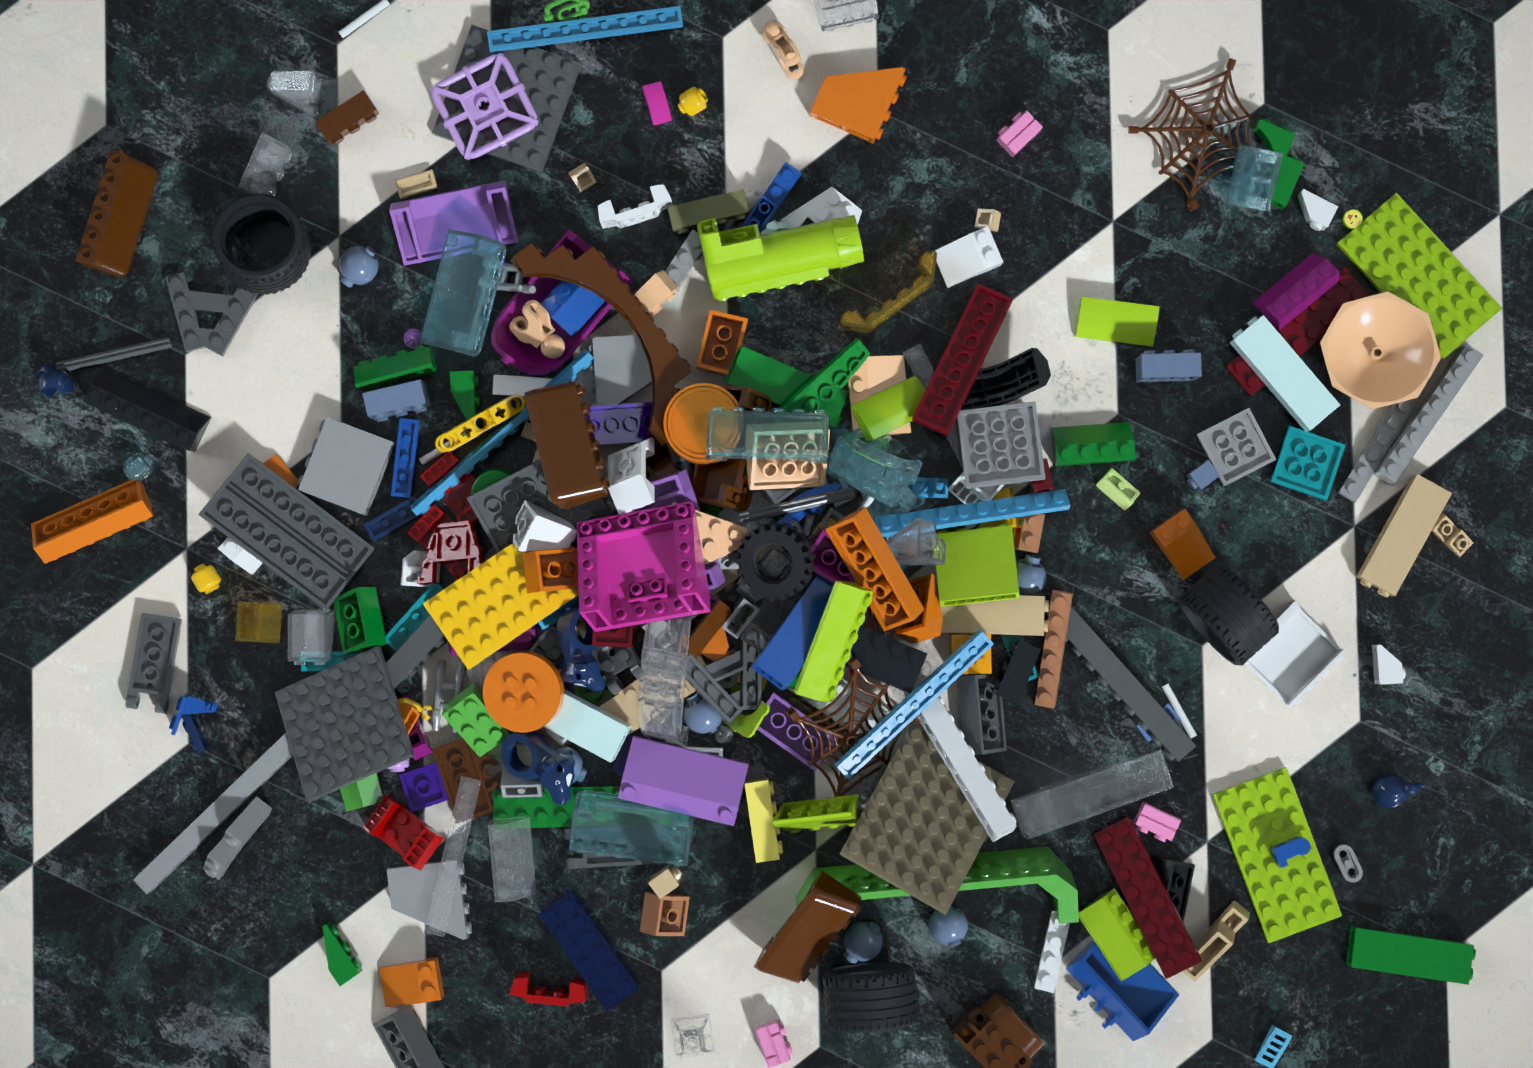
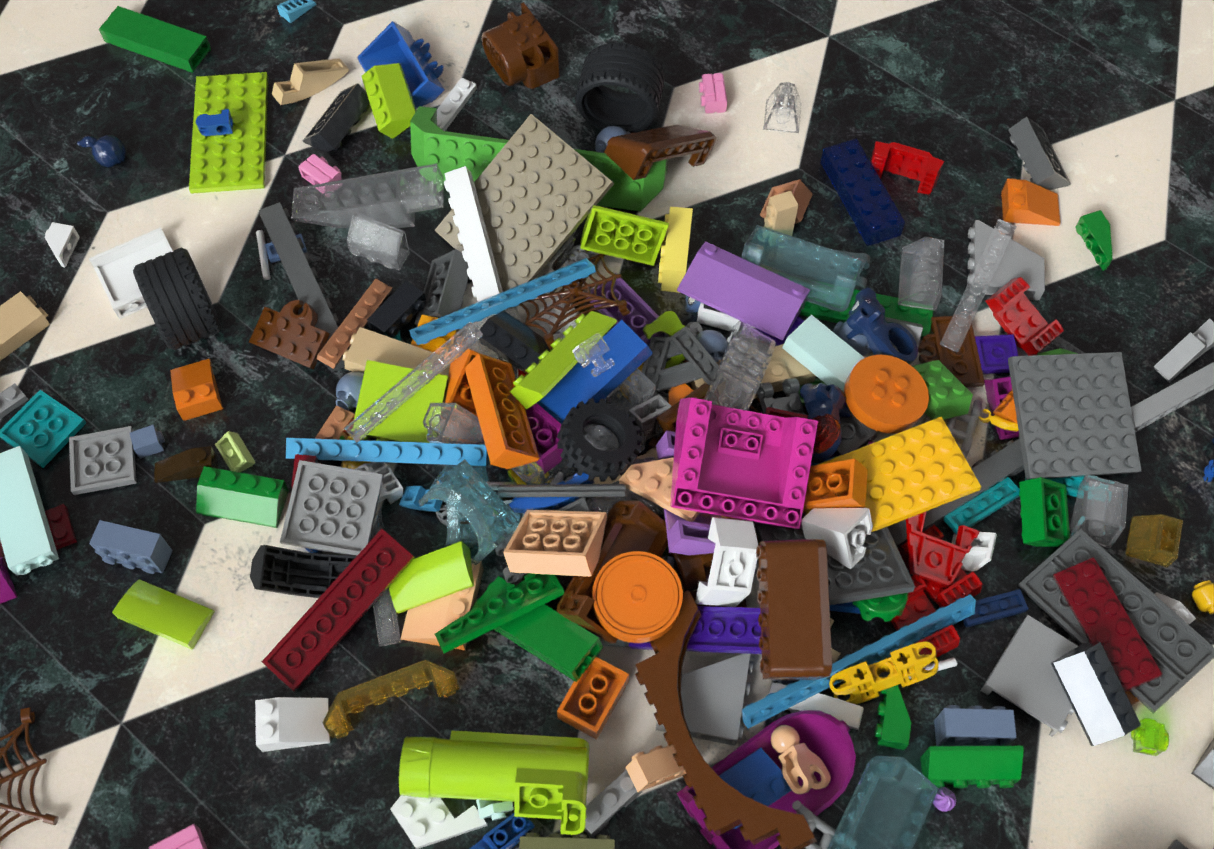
camera: 165 degrees left, 25 degrees down
(249, 435) = (1150, 737): none -> clear neon green brick
(295, 521) = (1107, 622): none -> dark red plate
(299, 455) = (1095, 693): none -> slope
(405, 458) = (972, 667): blue plate -> none
(573, 625) = (826, 433): none -> clear red tile
(767, 435) = (572, 553): clear light blue windscreen -> none
(805, 641) = (591, 352): none -> clear brick
(966, 582) = (413, 382): none -> clear plate
(988, 218) = (255, 761): tan slope -> none
(1066, 747) = (377, 242): none -> clear slope
(1111, 619) = (290, 333): none -> reddish brown plate
(1148, 898) = (352, 112): dark red plate -> none
(1157, 461) = (185, 464): none -> dark brown slope
(1347, 862) = (172, 110): light grey plate -> none

